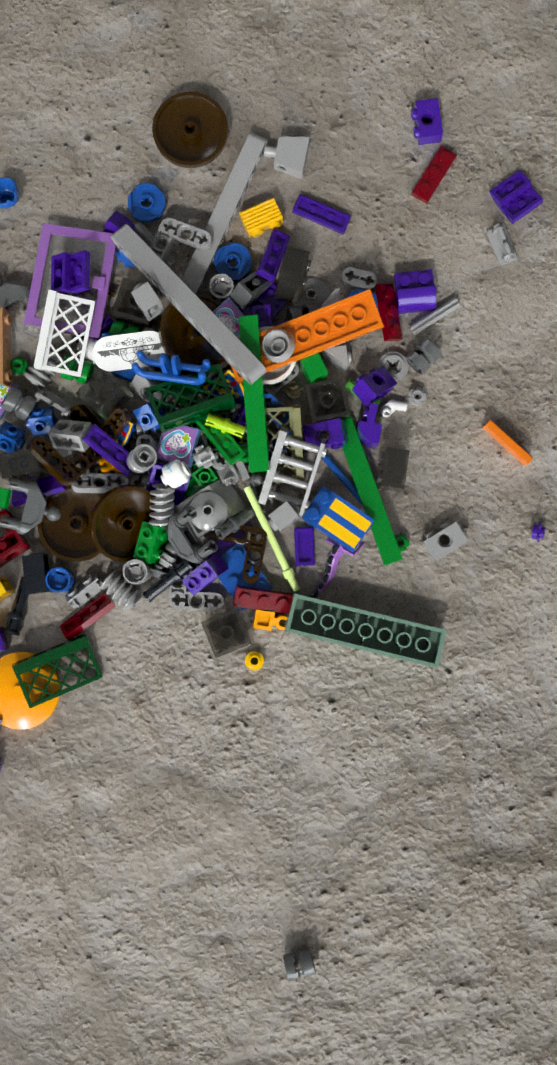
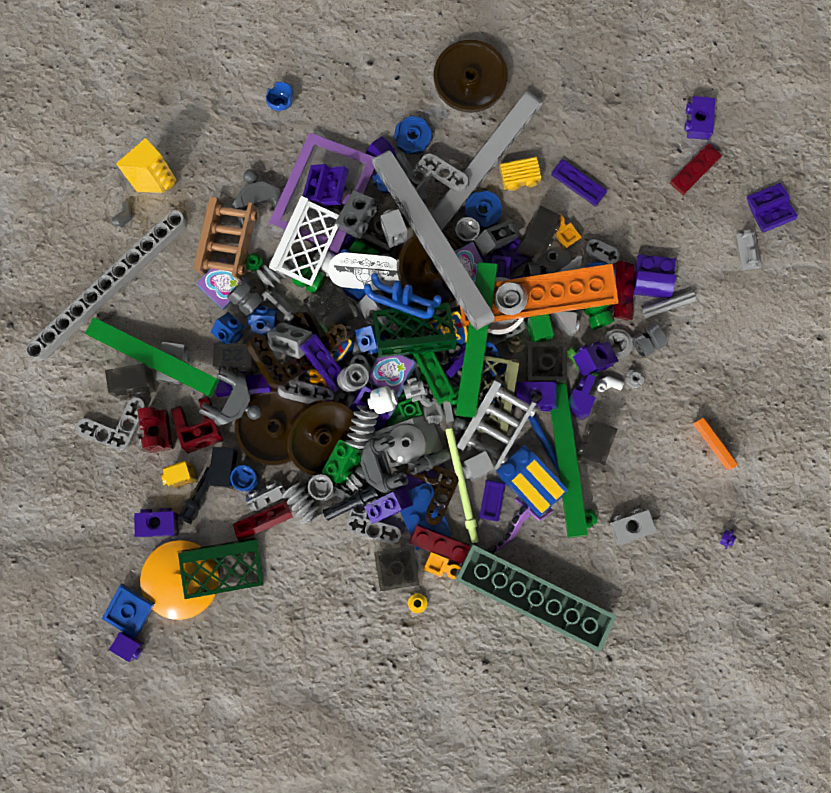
camera: 10 degrees right, 5 degrees down
(103, 295) = (352, 213): none -> dark grey brick
(225, 425) = (442, 364): lime pin -> none
(273, 255) = (524, 211): dark purple tile -> none
(289, 155) = (560, 120): light grey torso -> none
(320, 268) = (567, 234): none -> light orange plate
(369, 344) = (599, 316): none -> green wheel

